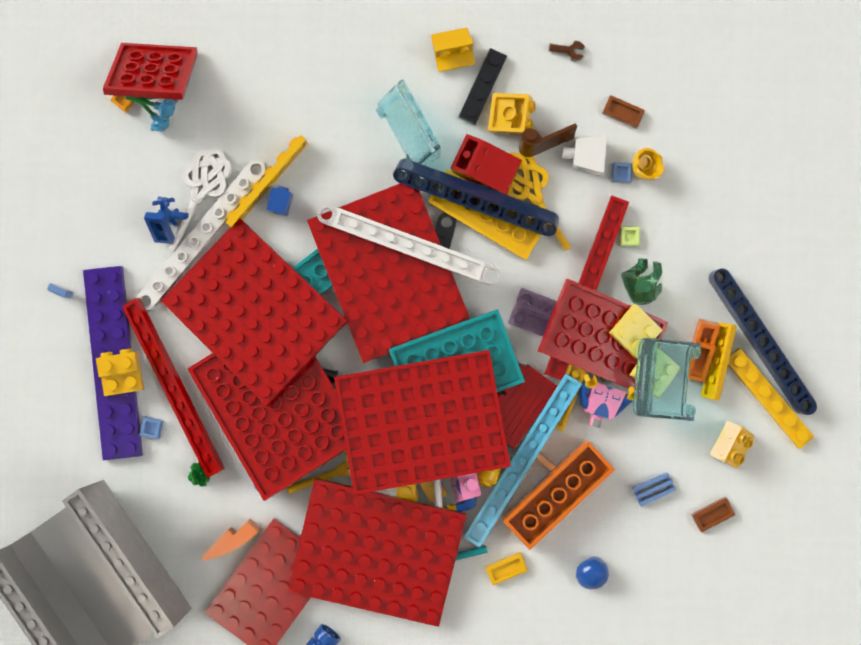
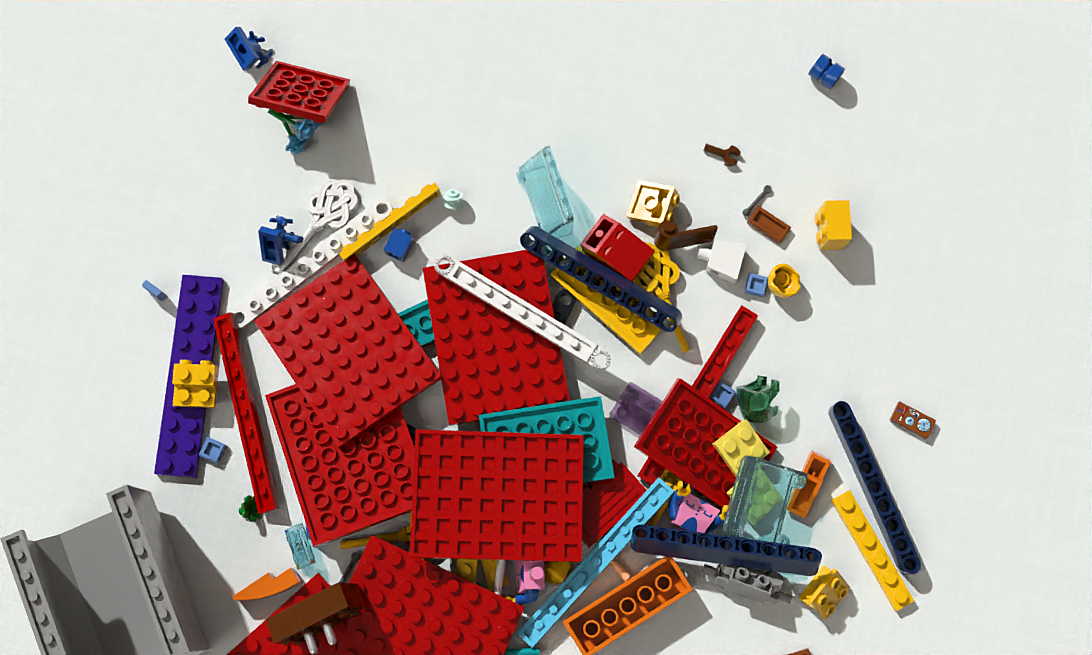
camera: 10 degrees right, 10 degrees down
(91, 38) = (247, 50): none -> blue piece
(122, 103) = (263, 117): light orange tile -> none
(251, 499) = (300, 546): none -> clear light blue plate
(281, 563) = (316, 615): none -> reddish brown piece
(303, 497) = (355, 556): none -> dark grey hinge
(321, 147) = (453, 199): none -> light aqua wheel
(453, 49) = (606, 130): yellow bracket -> none
(482, 86) = (629, 172): black plate -> none
(609, 283) = (722, 395): none -> medium blue tile
(615, 77) = (767, 189): none -> dark grey hinge
(629, 236) = (752, 351): yellowish green tile -> none
(629, 426) = (726, 550): none -> dark blue beam
(658, 495) = (749, 619): medium blue tile -> none
(663, 446) = (749, 582): none -> light grey piece
(686, 101) = (833, 225): none -> yellow brick
(717, 370) = (822, 504): yellow plate -> none
(787, 271) = (912, 420): none -> dark orange tile

